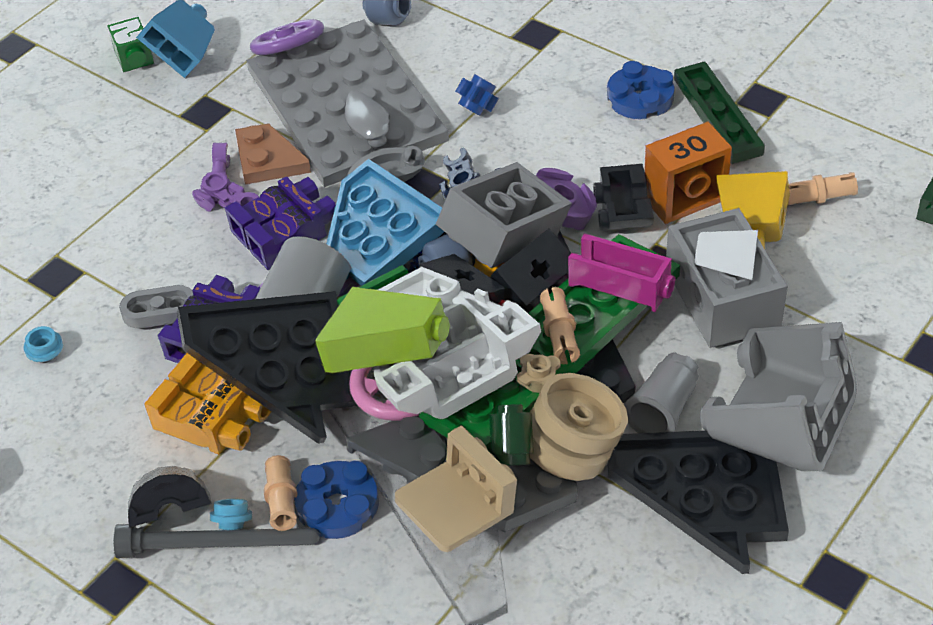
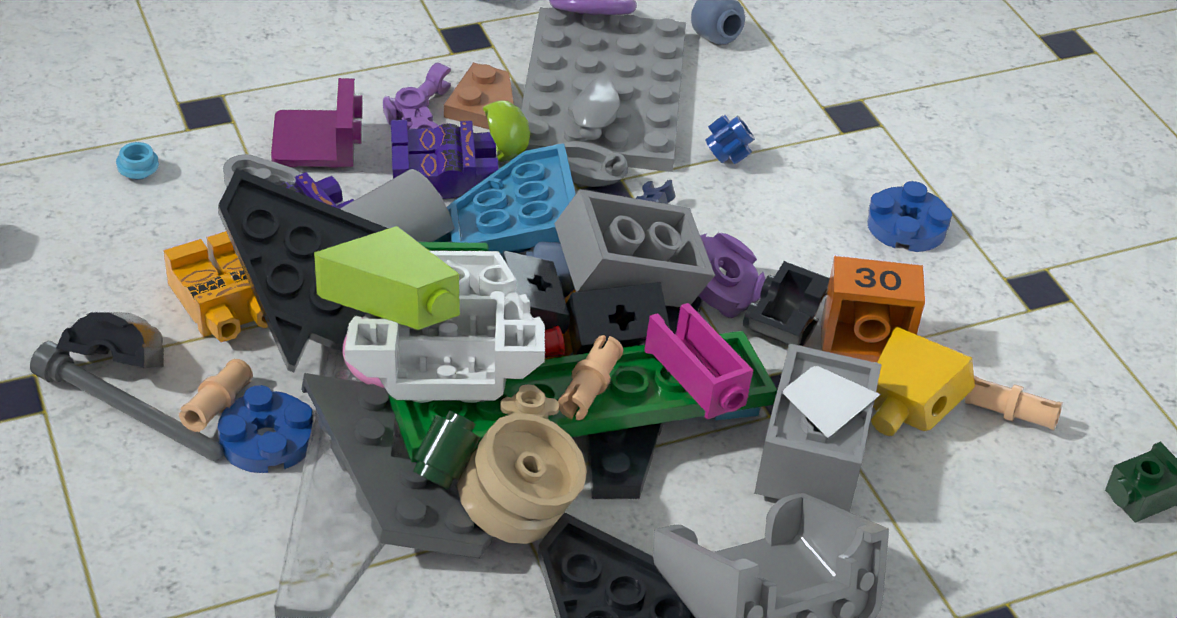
camera: 25 degrees right, 5 degrees down
(172, 246) = (320, 136): none -> magenta bracket
(231, 513) = (158, 389): medium azure plate -> none
(317, 166) = (508, 129): none -> lime hair
(461, 494) = (349, 478): tan bracket -> none
(663, 395) = (638, 509): light grey plant -> none
(716, 106) = (971, 277): dark green plate -> none

